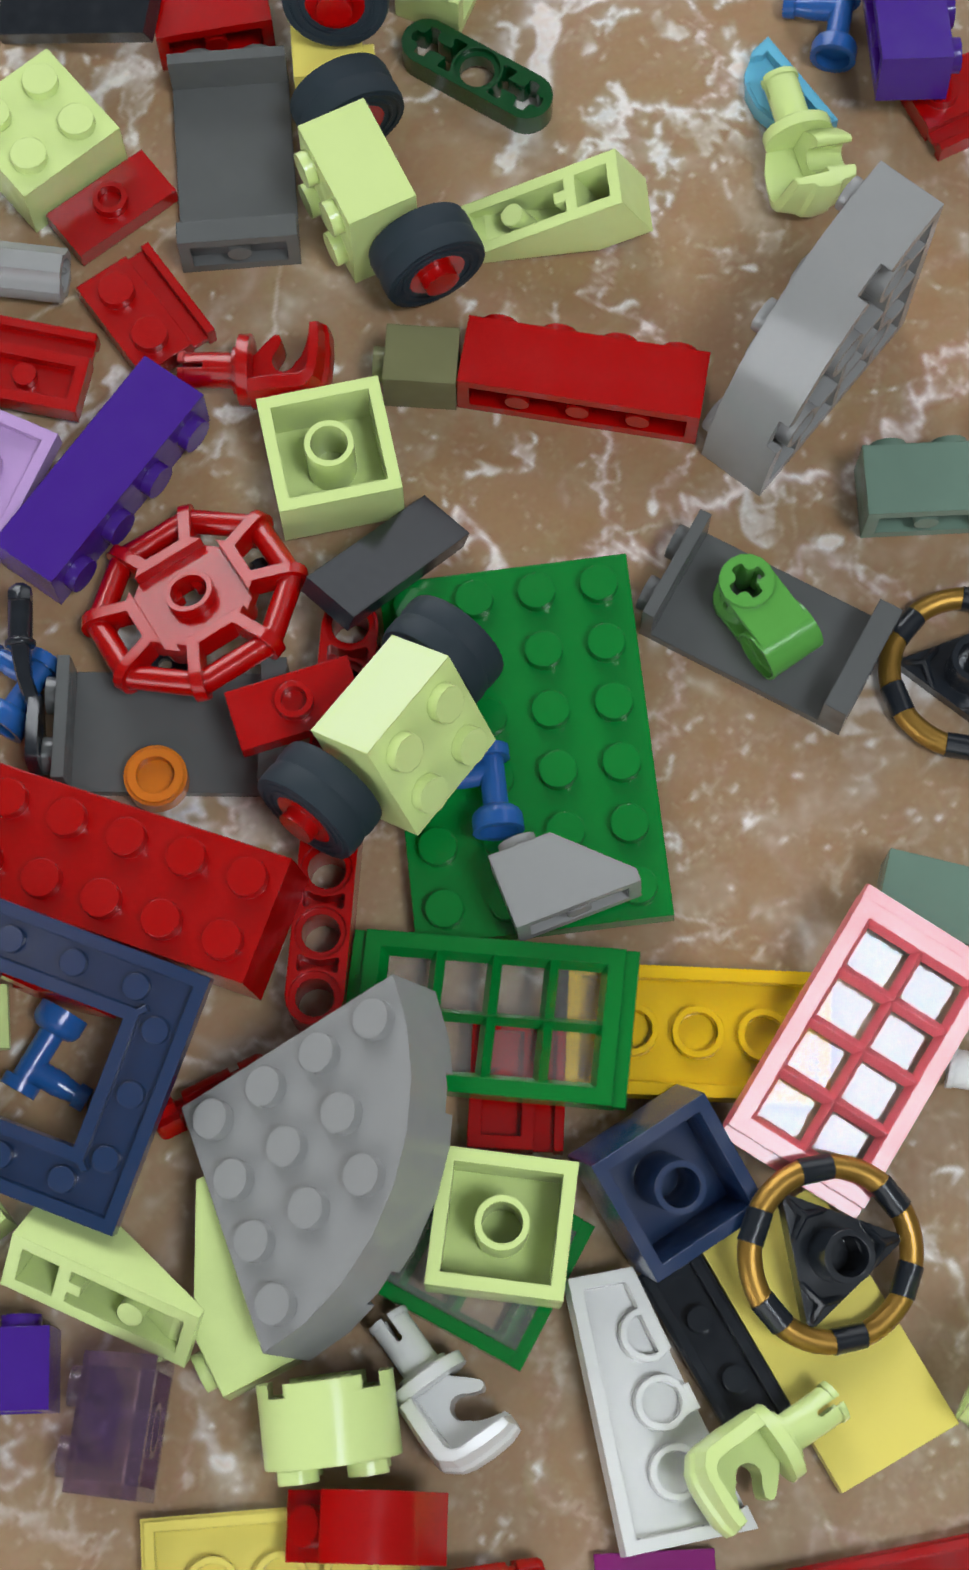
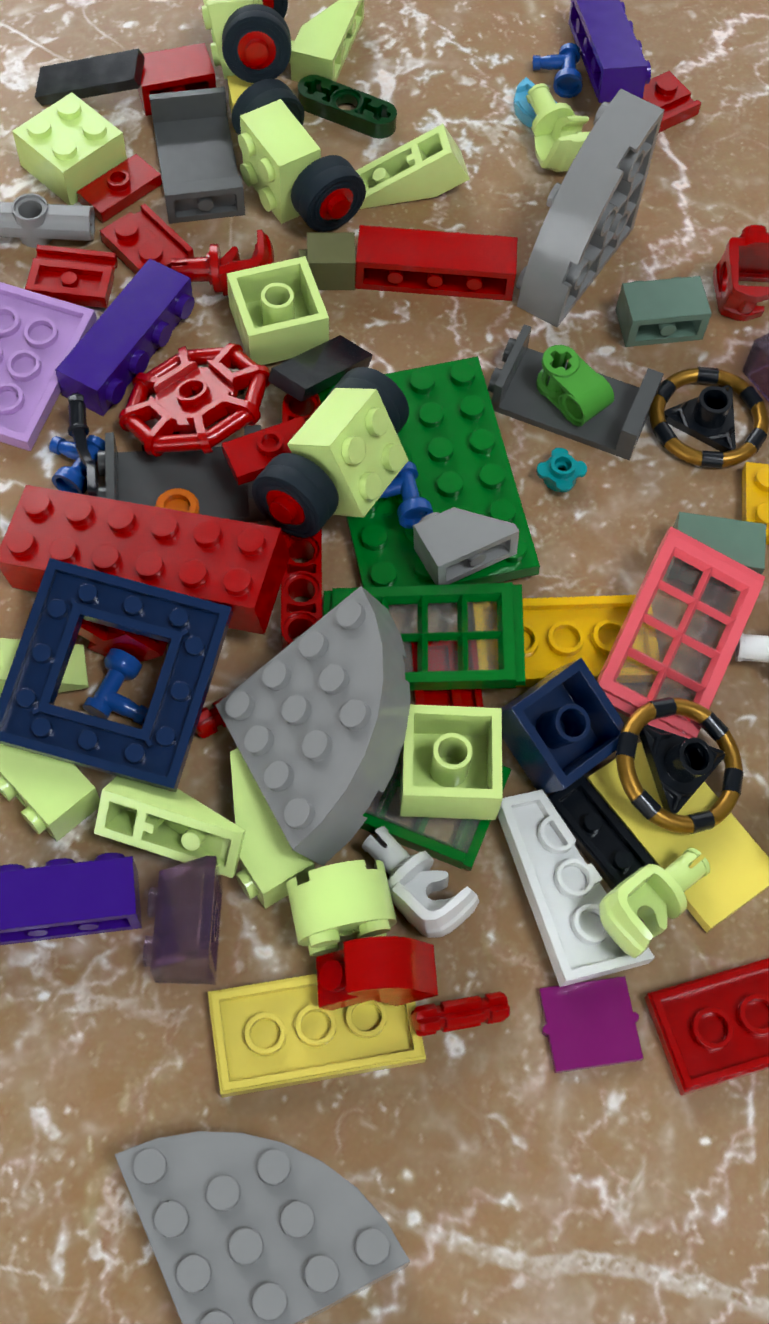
camera: 10 degrees left, 10 degrees down
(730, 769) = (561, 480): none -> teal plate

